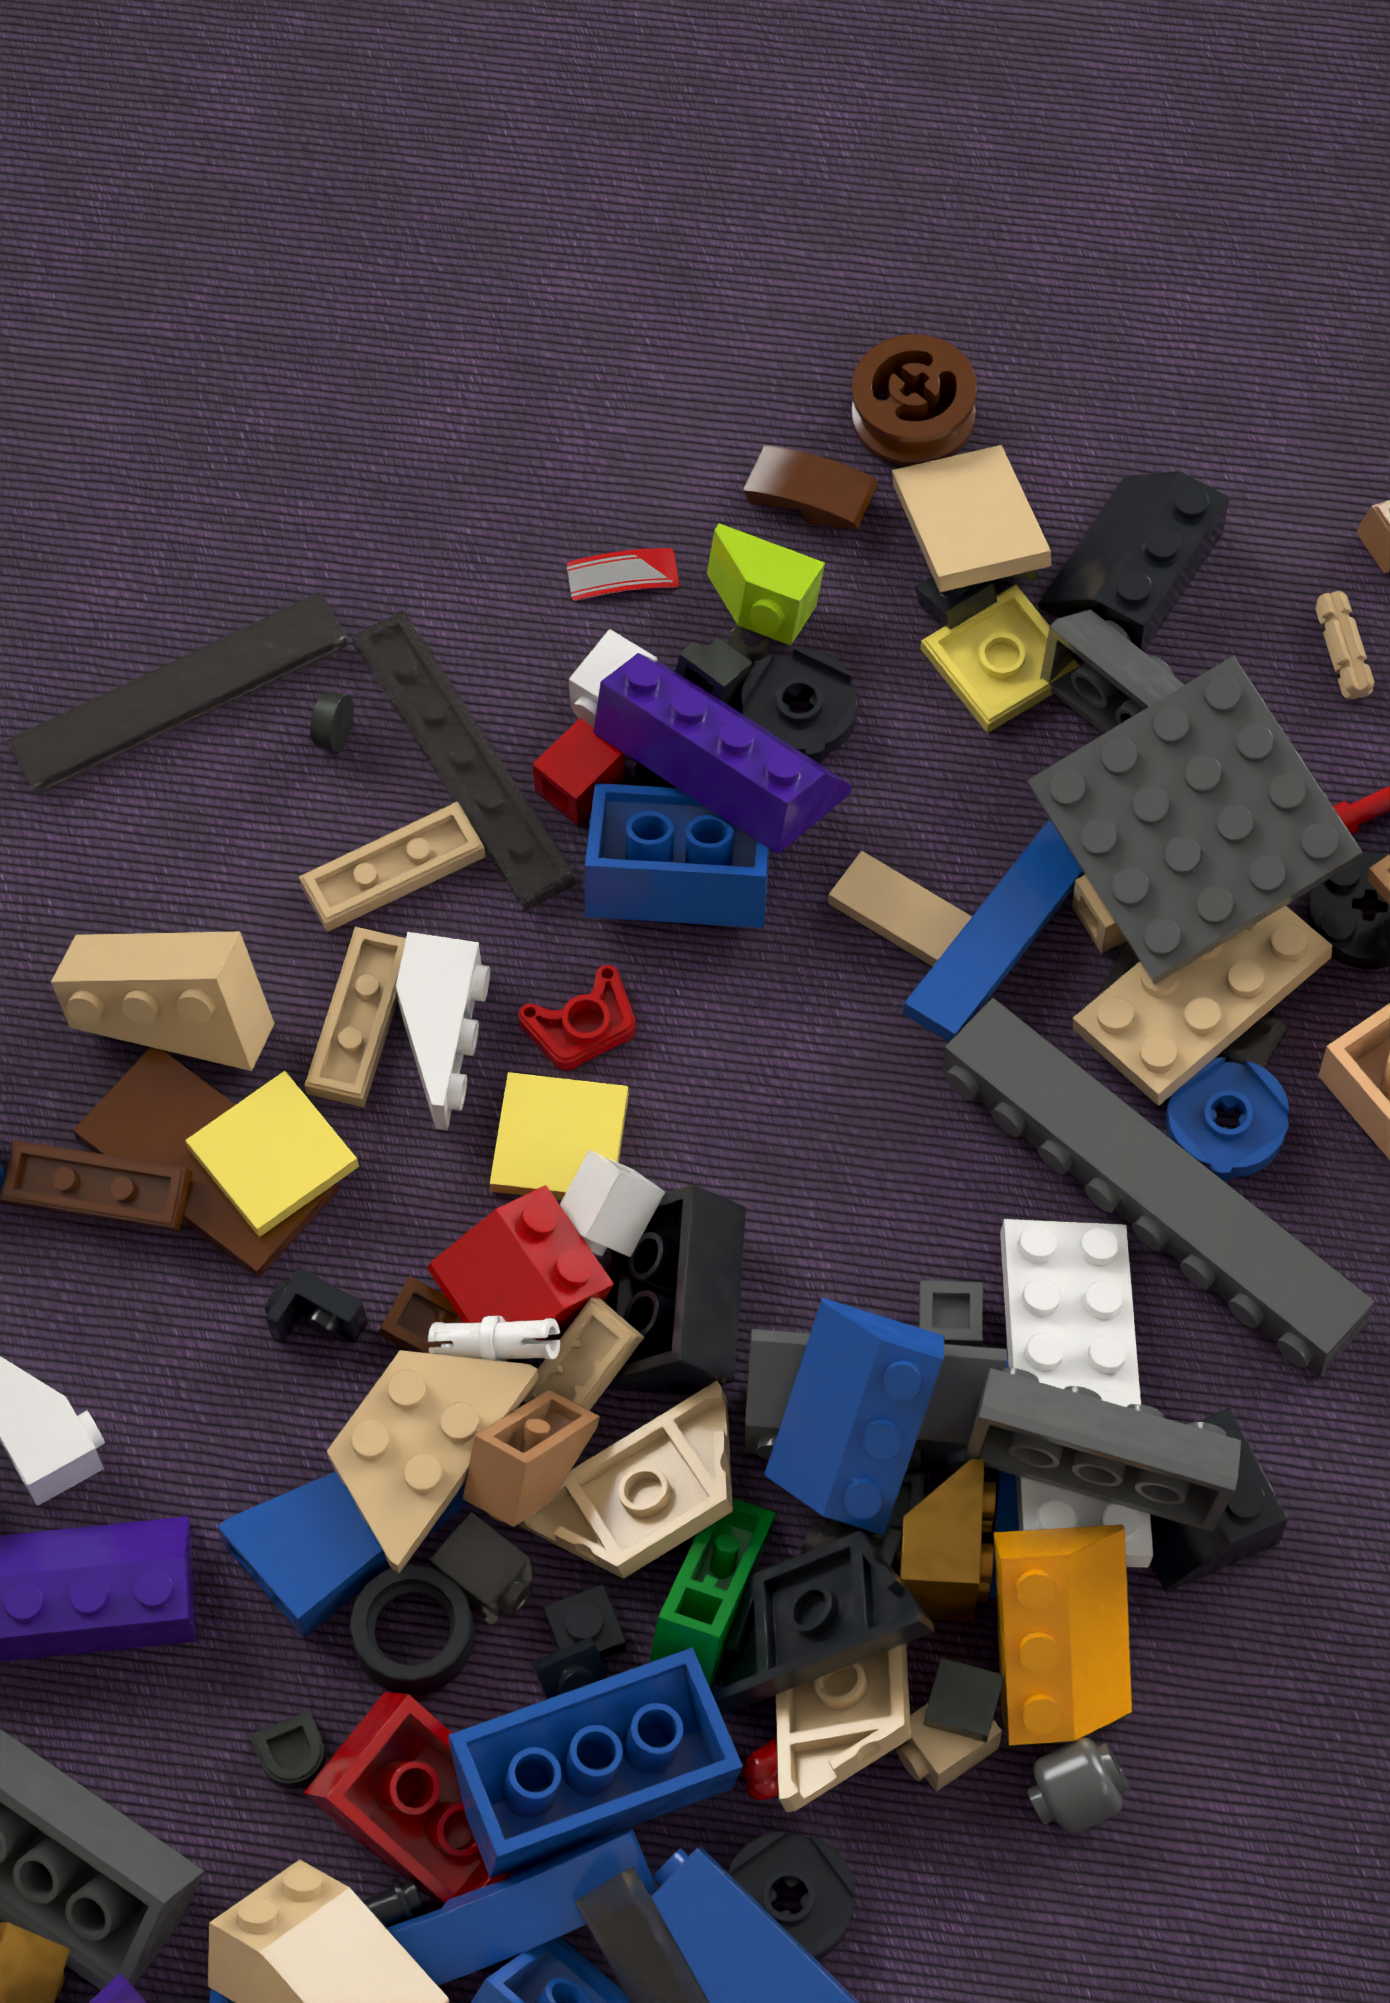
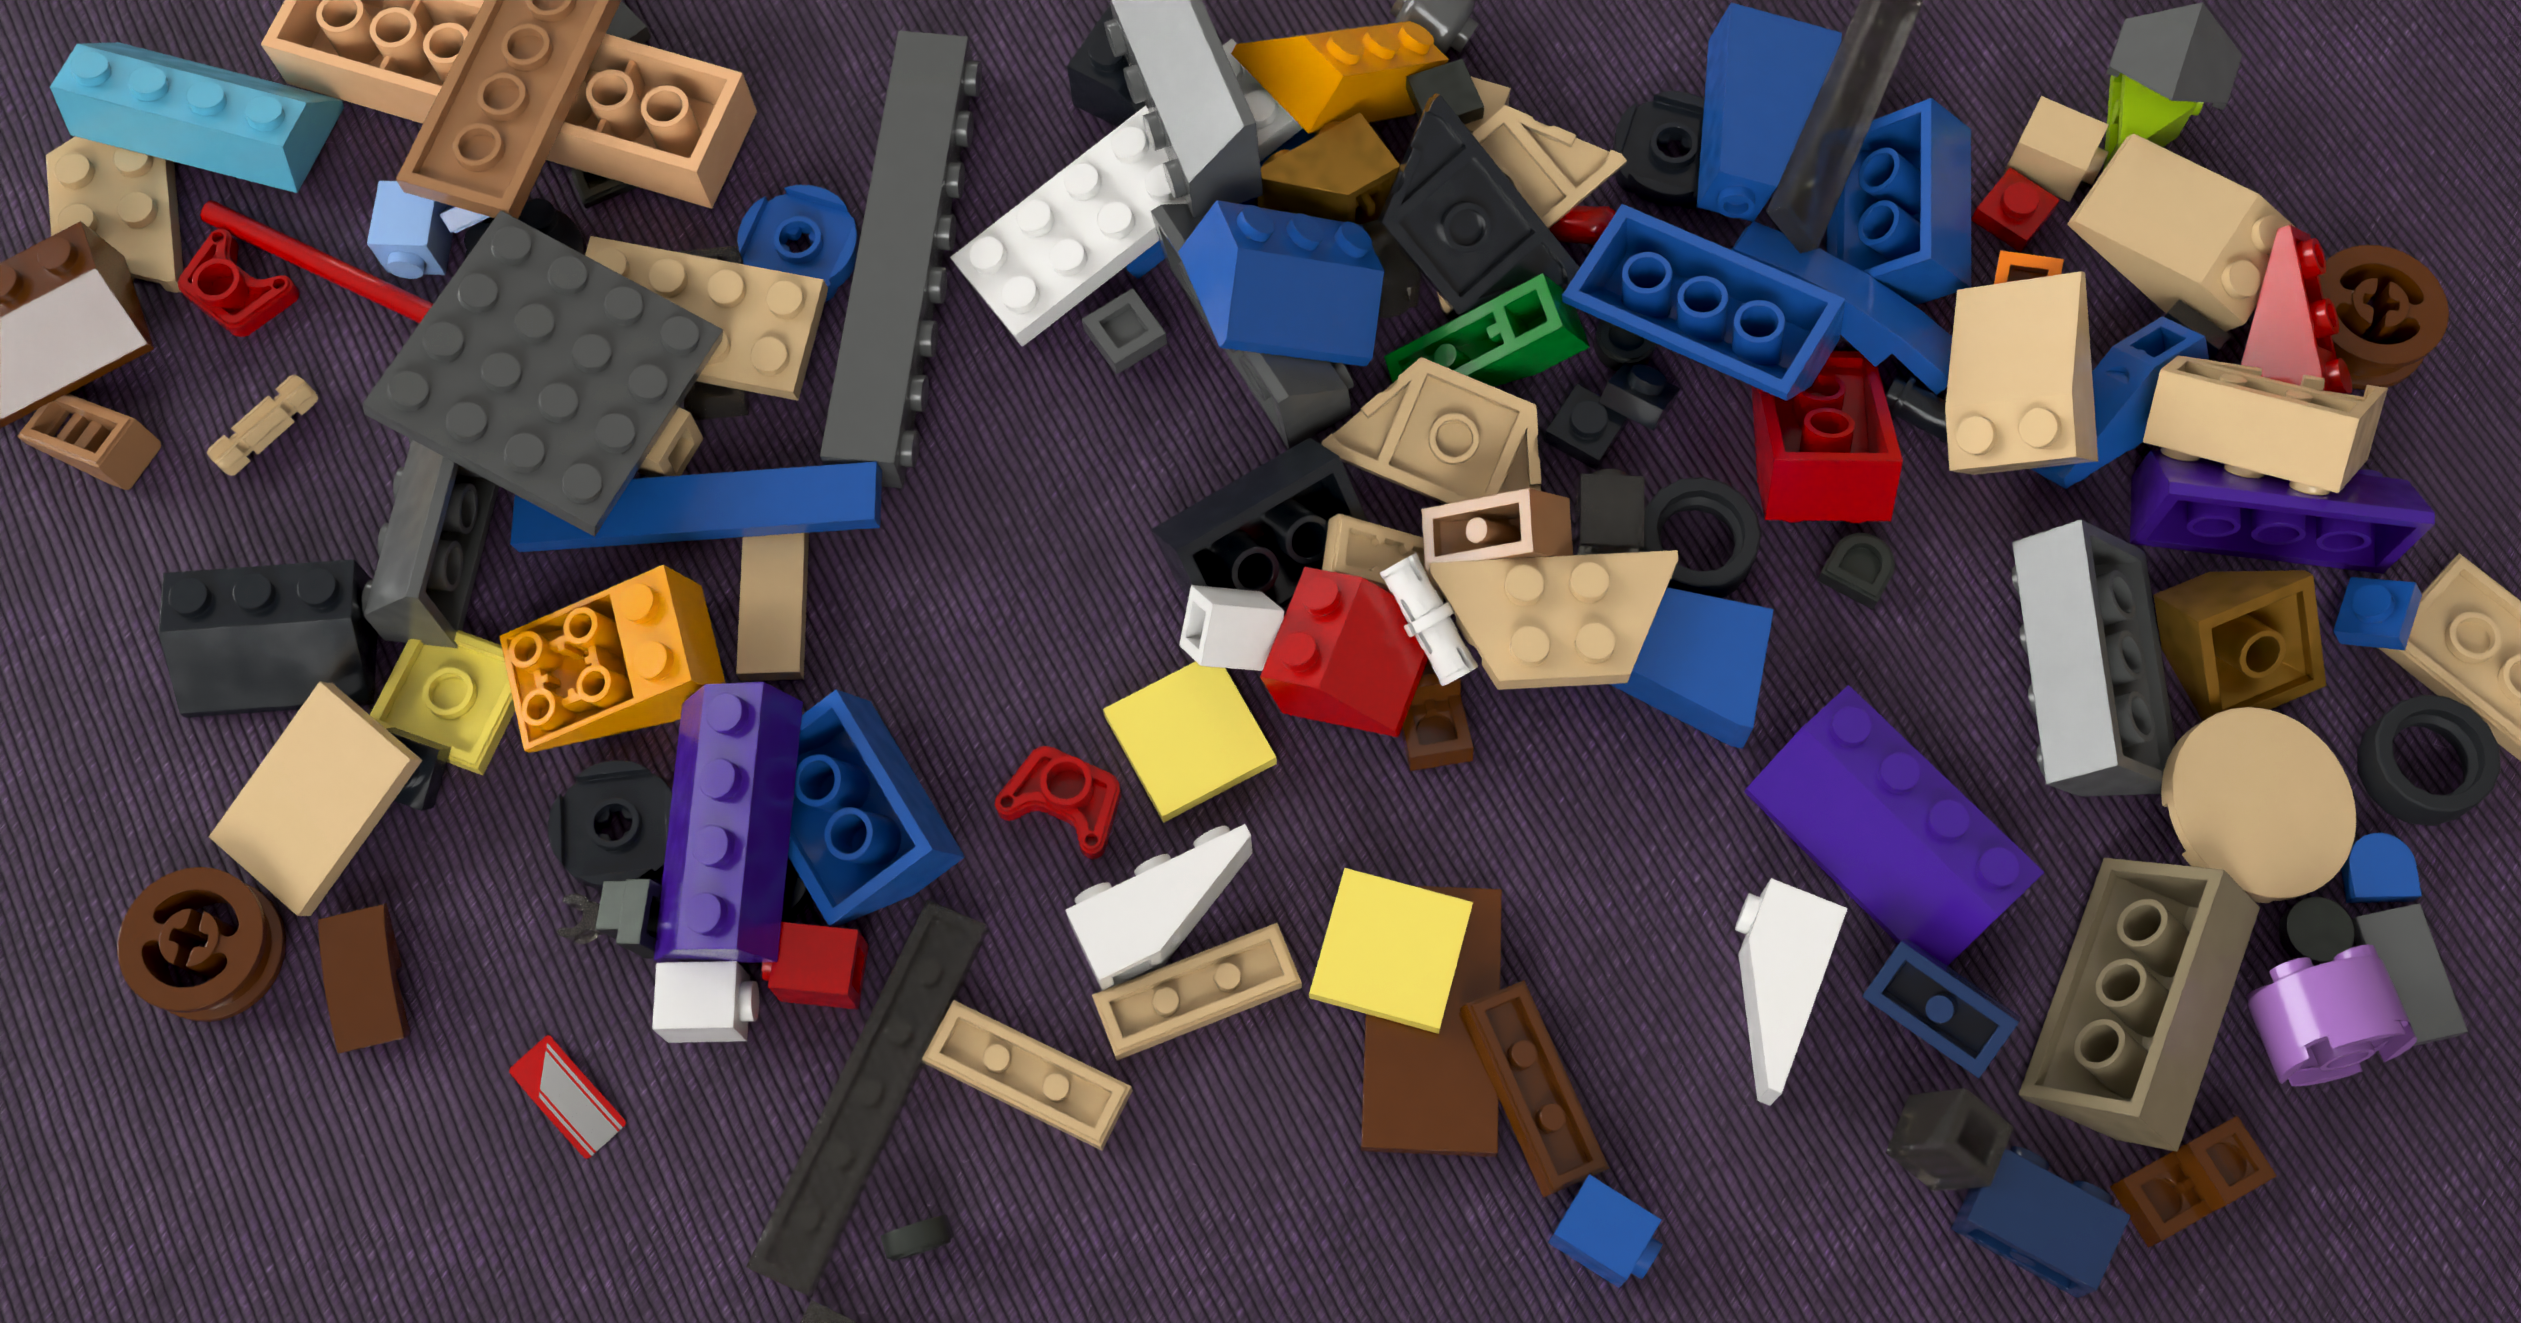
camera: 125 degrees left, 5 degrees up
(167, 993) = (1316, 1163): tan wedge -> none
(324, 1306) = (1491, 803): black bracket -> none
(764, 583) = (506, 936): lime slope -> none
(930, 771) = (612, 661): none -> light orange slope

